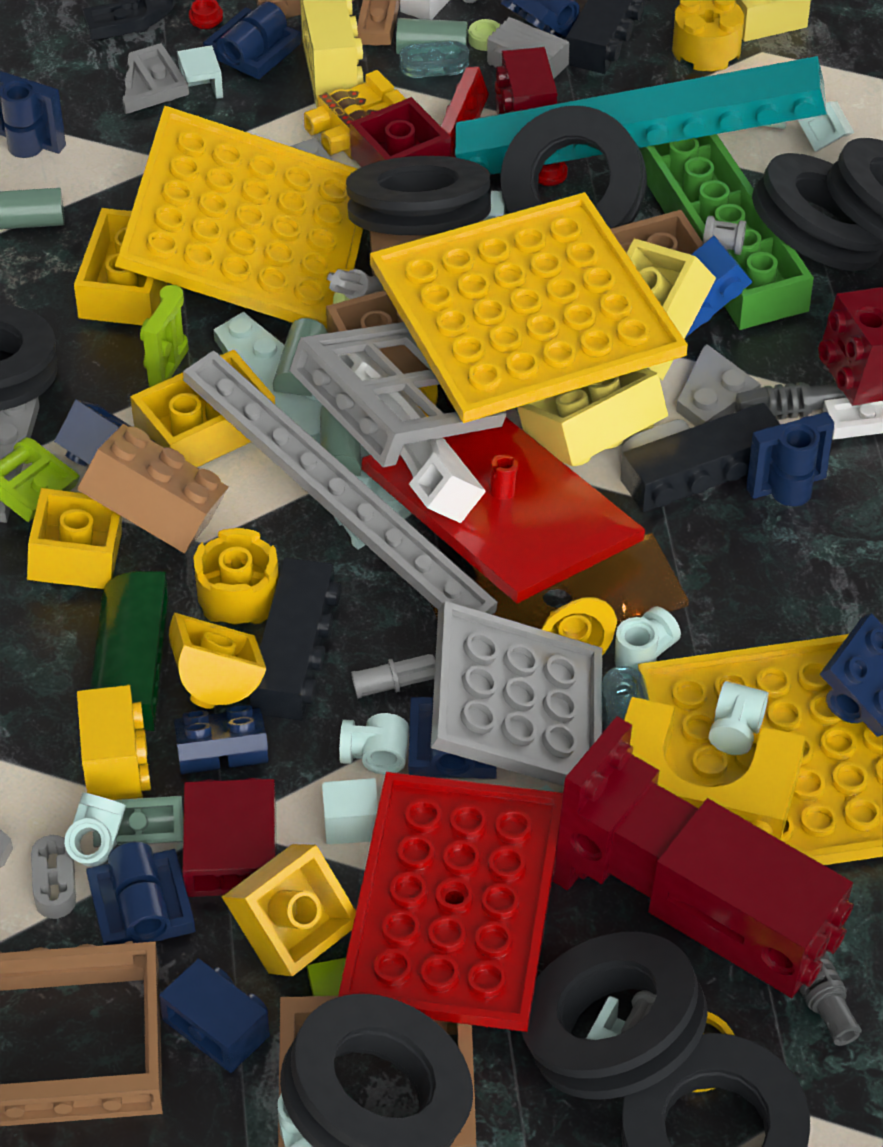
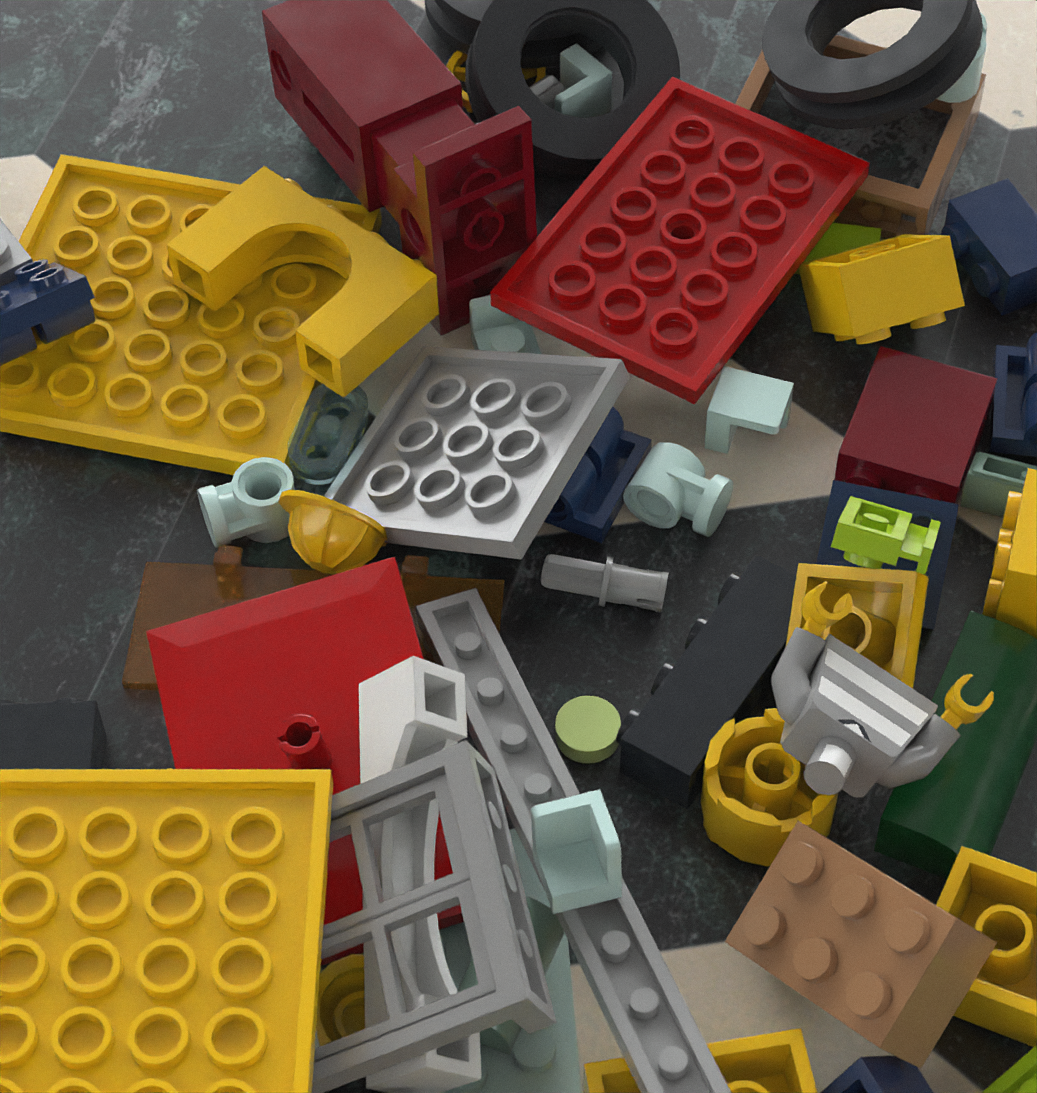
camera: 155 degrees left, 5 degrees up
(190, 577) = (855, 718): none -> light grey torso
(213, 678) = (882, 534): none -> lime plate
(317, 454) = (576, 851): none -> light aqua panel
(363, 596) = (587, 729): none -> yellowish green tile
(737, 717) = (217, 332): light aqua piece -> none

